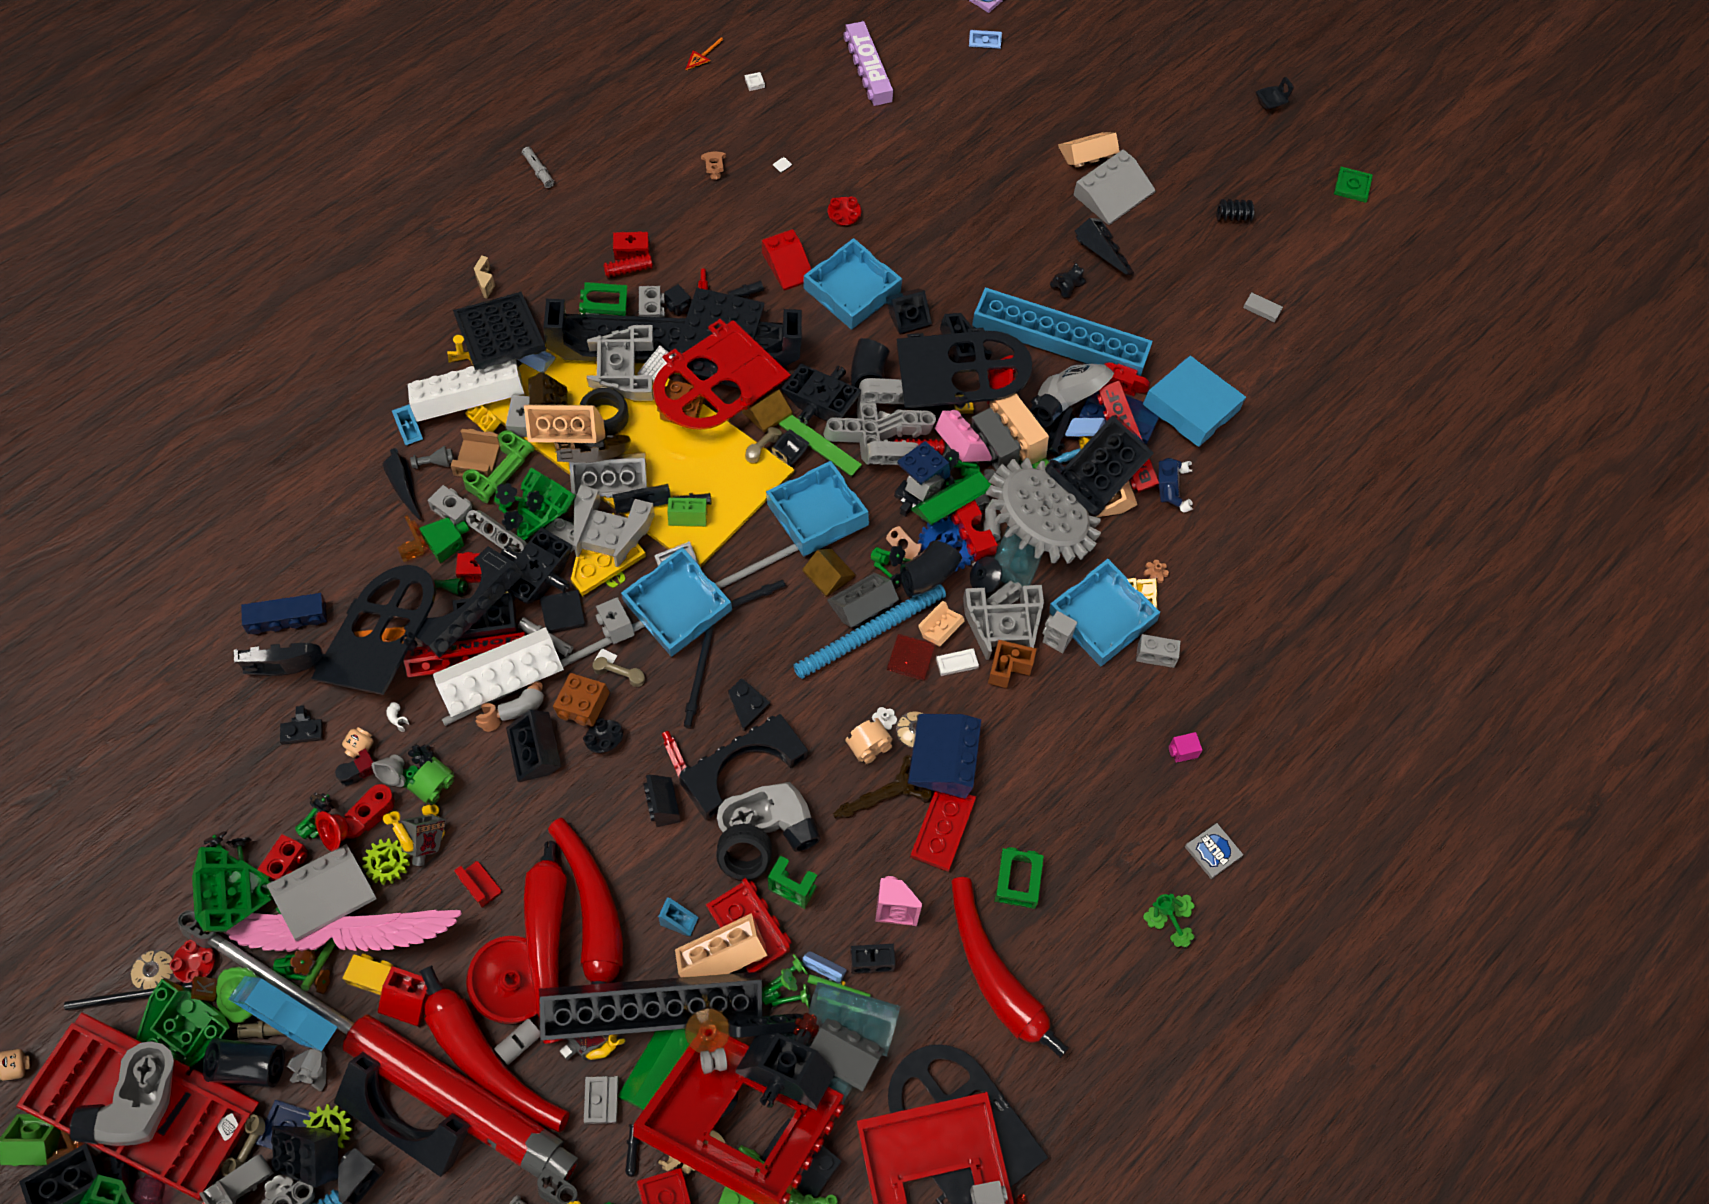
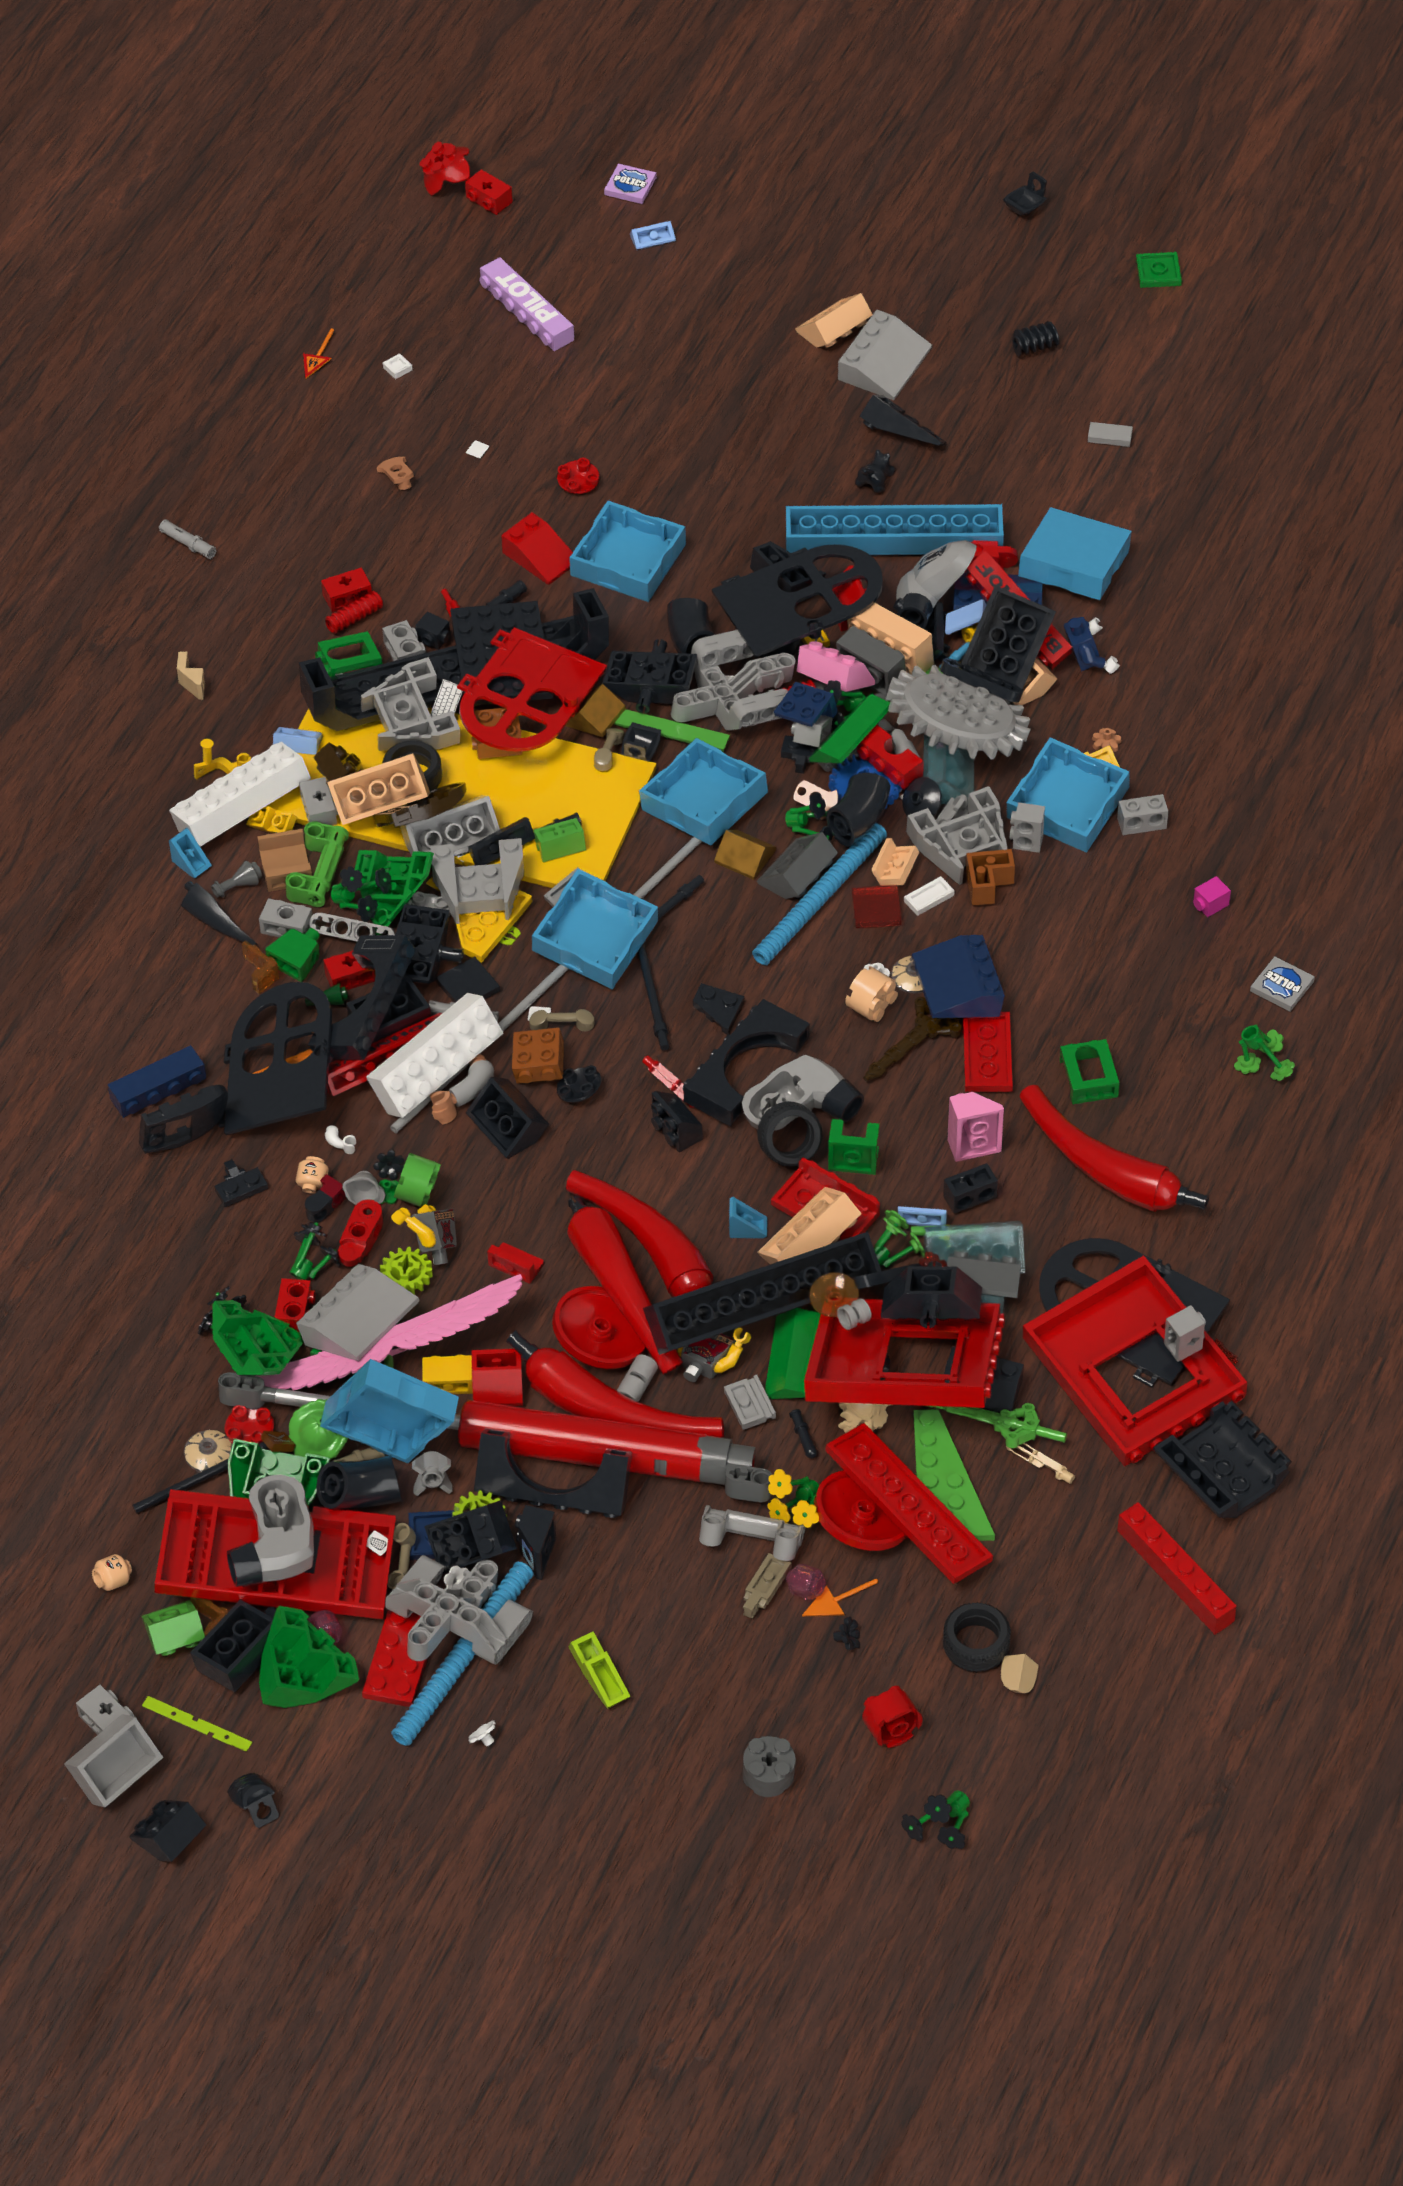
camera: 15 degrees left, 10 degrees down
(331, 829) = (336, 1253): red hat -> none
(499, 330) = (246, 721): black plate -> none
(614, 620) = (534, 970): light grey brick -> none
(909, 310) = (707, 559): black slope -> none

